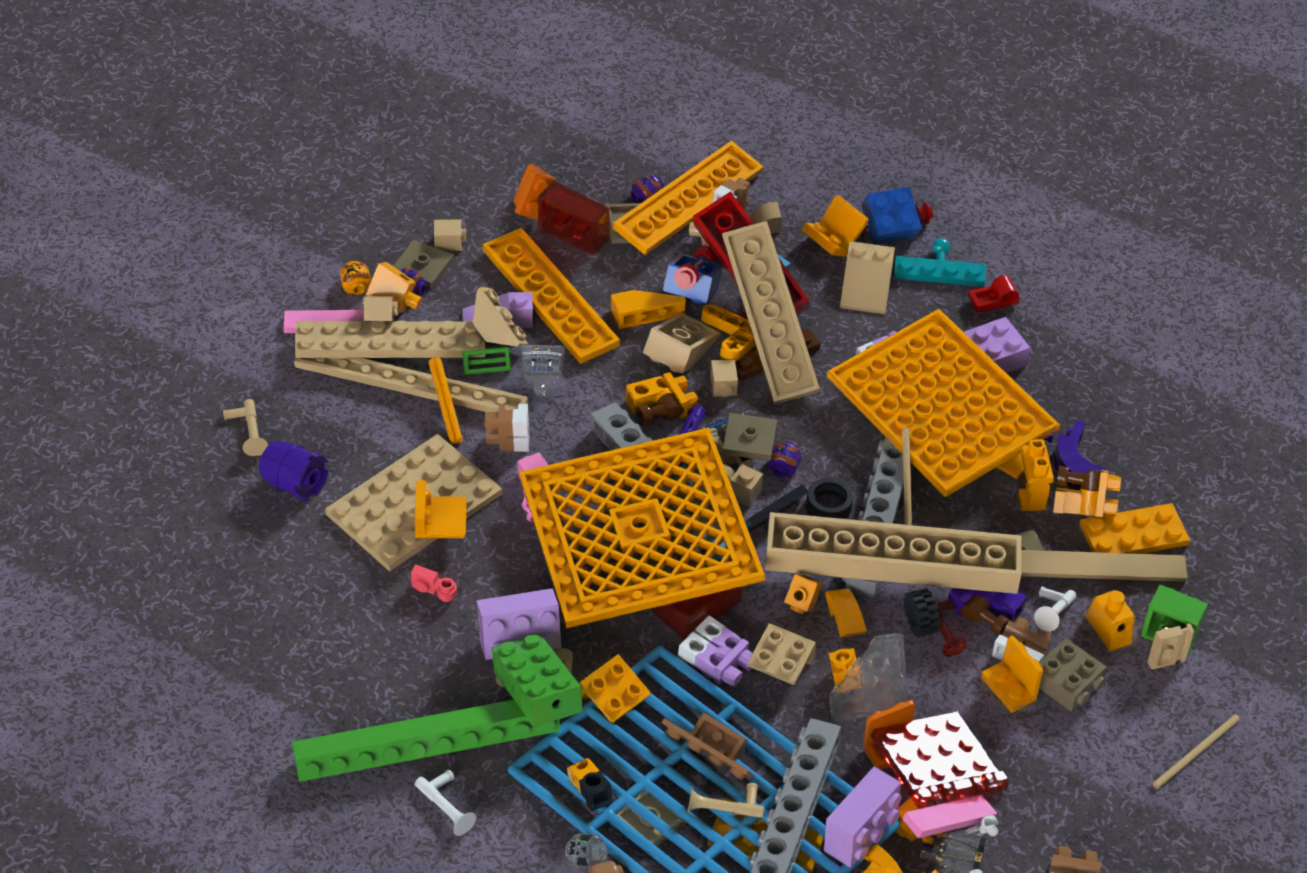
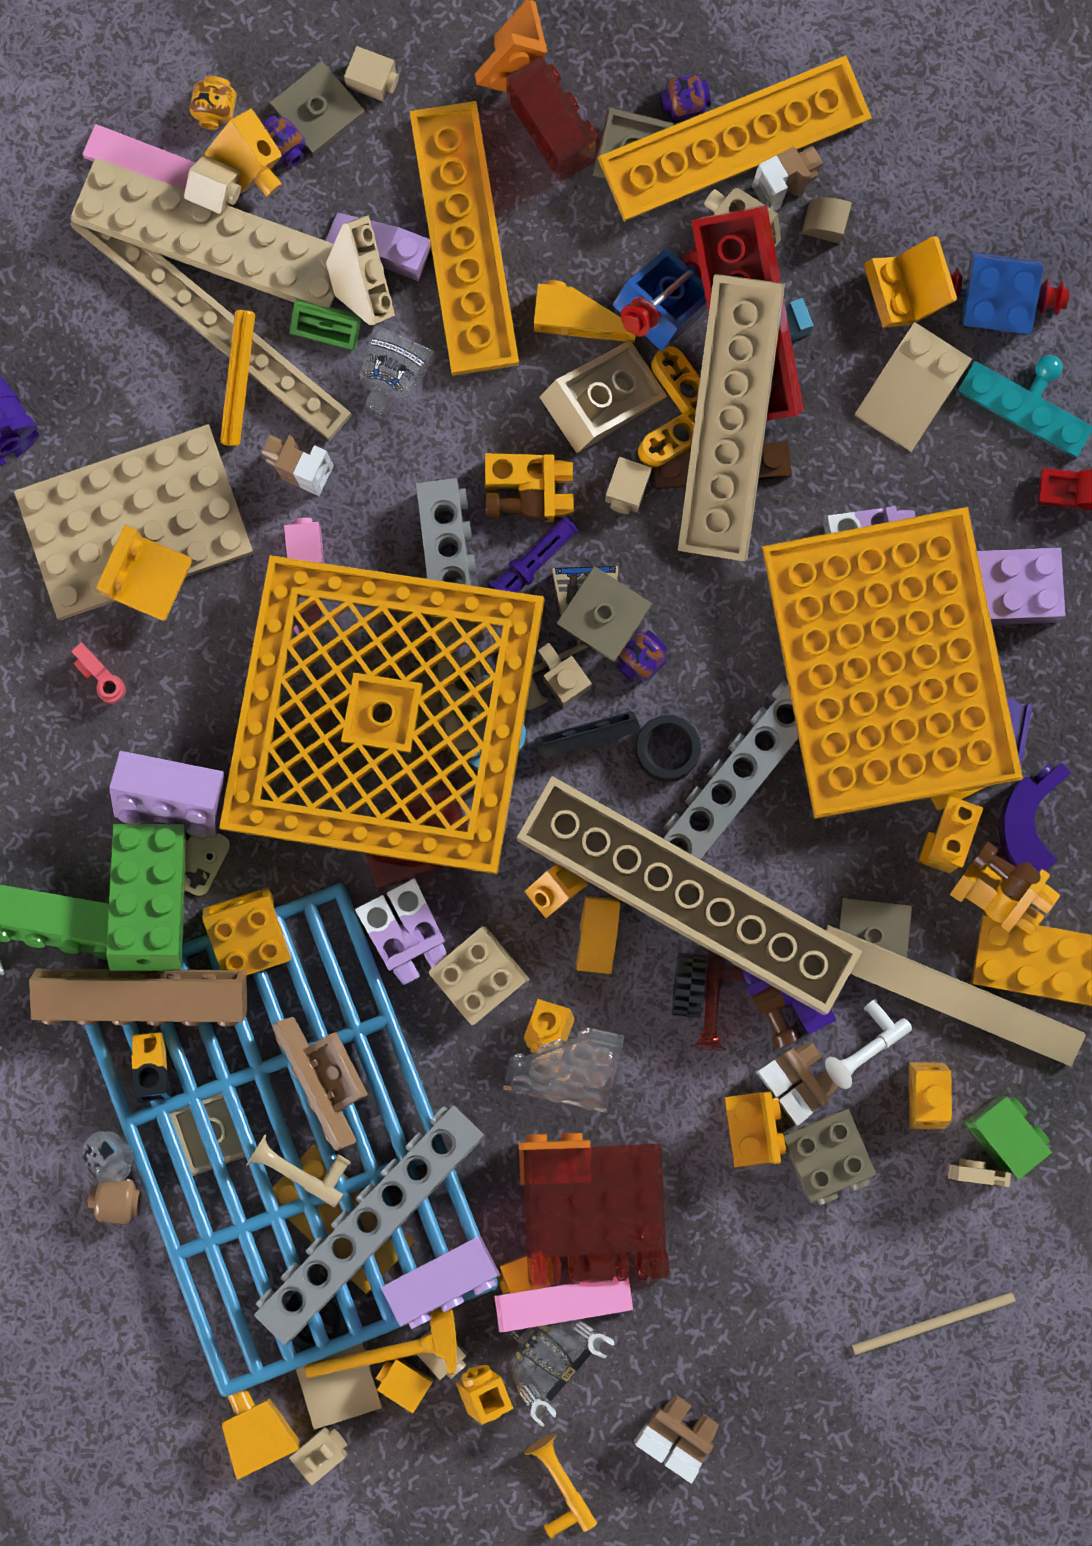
camera: 25 degrees right, 35 degrees up
(559, 742) = (138, 996): none -> medium nougat brick
(906, 476) = (776, 774): tan axle -> none

